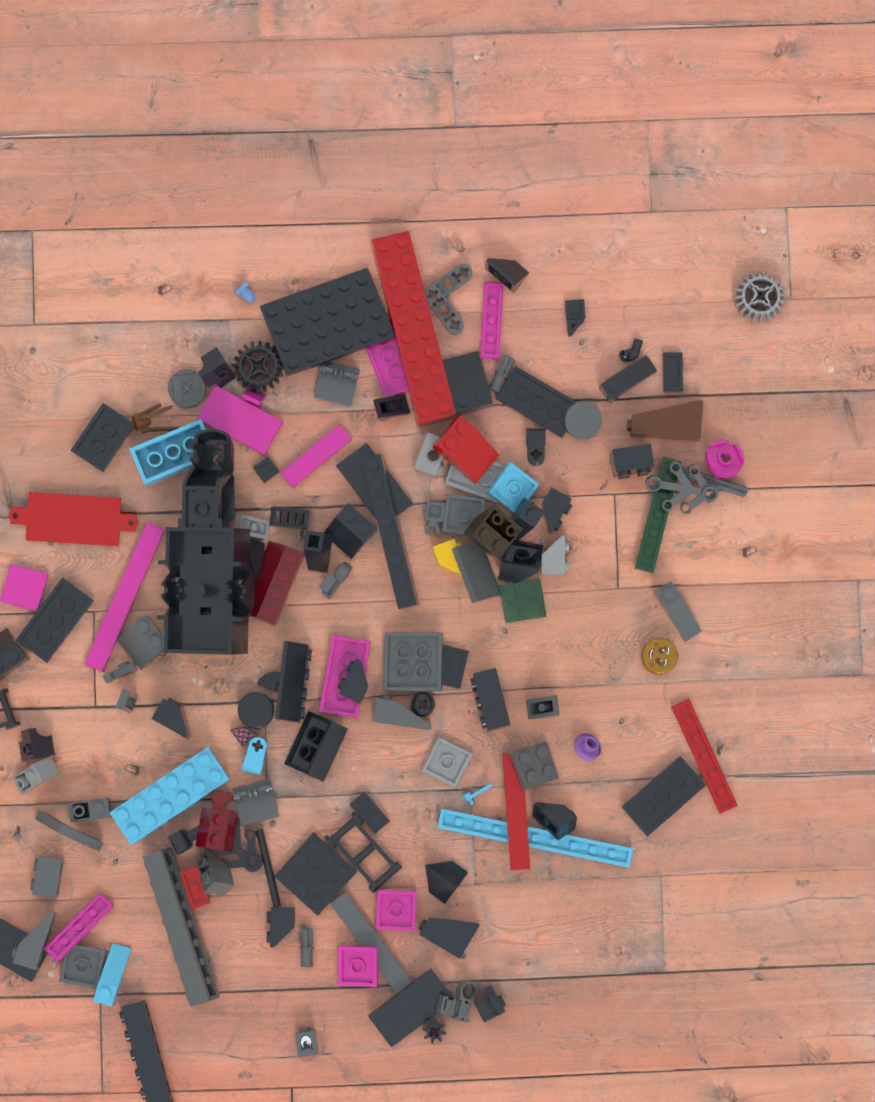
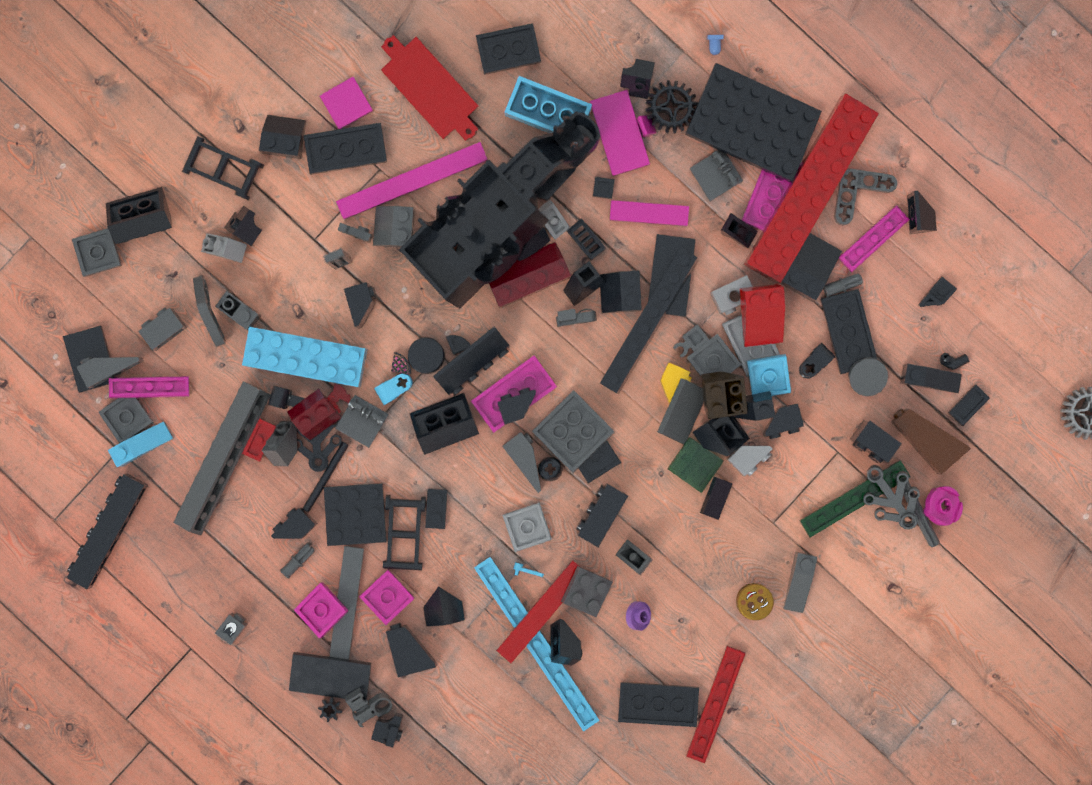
camera: 45 degrees right, 5 degrees up
(142, 420) = (549, 64): reddish brown plant -> none
(187, 388) = (603, 72): dark grey tile -> none
(560, 610) = (716, 498): none -> black tile

